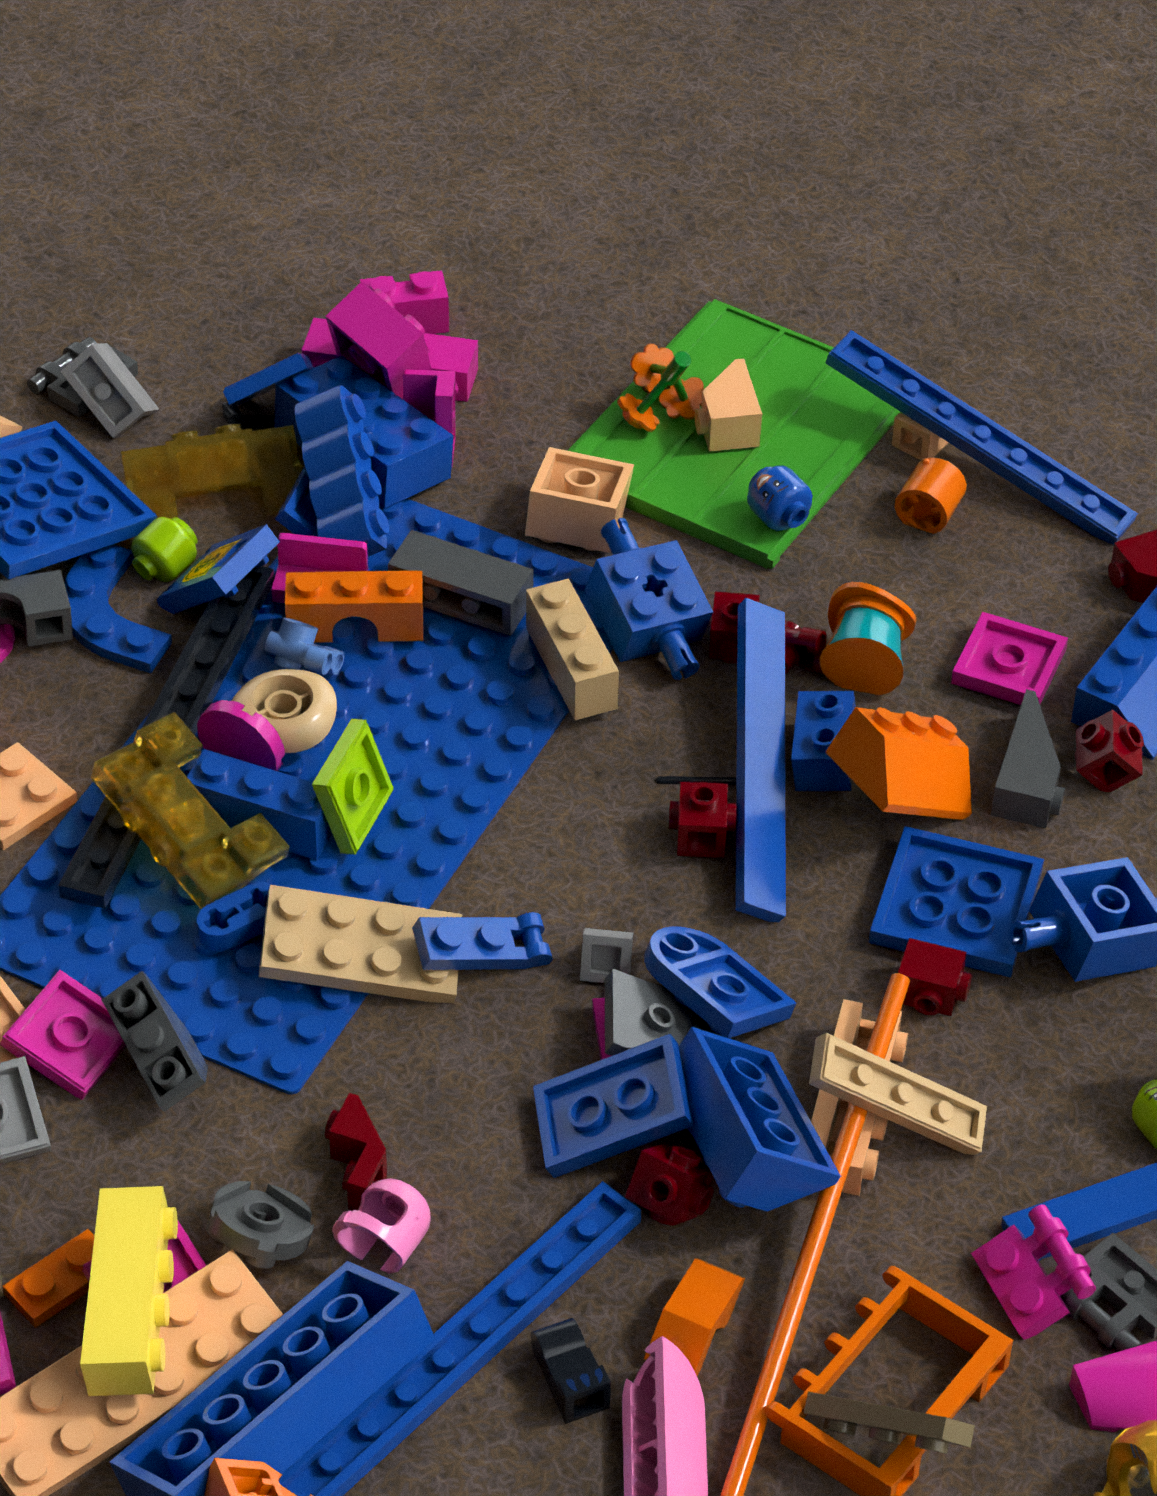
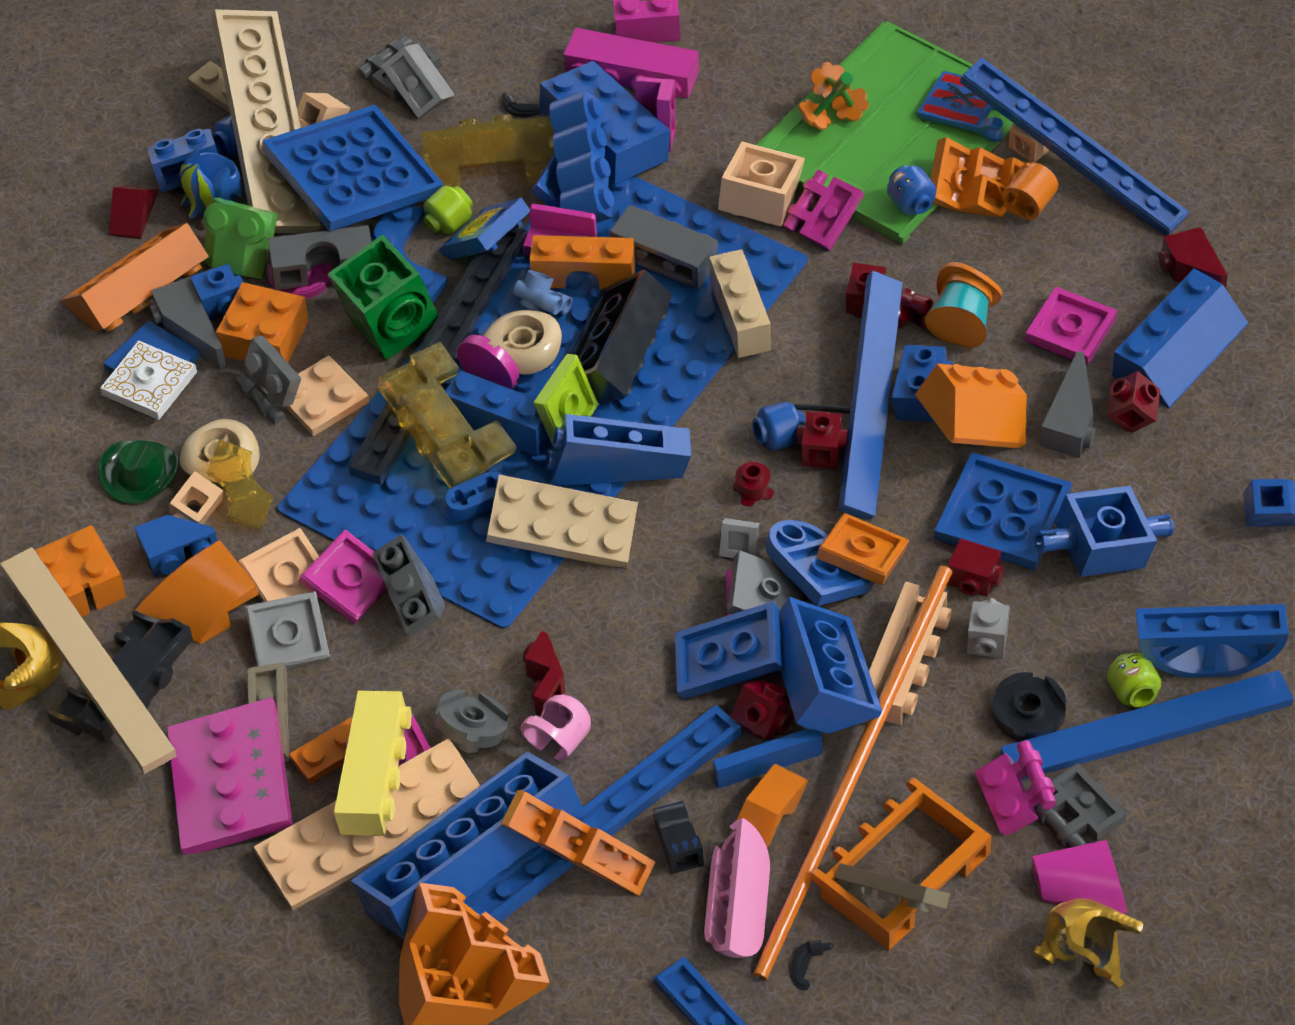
camera: 10 degrees right, 5 degrees up
(91, 659) = (384, 297): none -> green brick
(266, 379) = (536, 77): blue tile -> none
(378, 337) = (619, 50): dark pink brick -> none
(415, 694) = (620, 333): none -> black slope
(426, 846) = (616, 451): none -> blue slope
(433, 1386) = (578, 842): none -> orange slope
(481, 942) = (649, 524): blue plate -> none
(614, 881) = (752, 483): none -> dark red brick
(640, 804) = (777, 425): none -> blue head
(648, 600) = (802, 267): blue brick -> none
(677, 1250) = (760, 758): none -> blue tile
(680, 517) = (830, 213): none -> dark pink plate
(730, 411) = (883, 116): light nougat slope -> none
(776, 960) = (862, 549): none -> orange plate
(825, 395) = (959, 107): none -> blue flag
(853, 483) = (971, 178): none -> orange slope
(897, 1094) = (933, 654): tan tile -> none
(963, 1056) = (988, 628): none -> light grey brick
(1028, 1184) = (1022, 724): none -> black plate

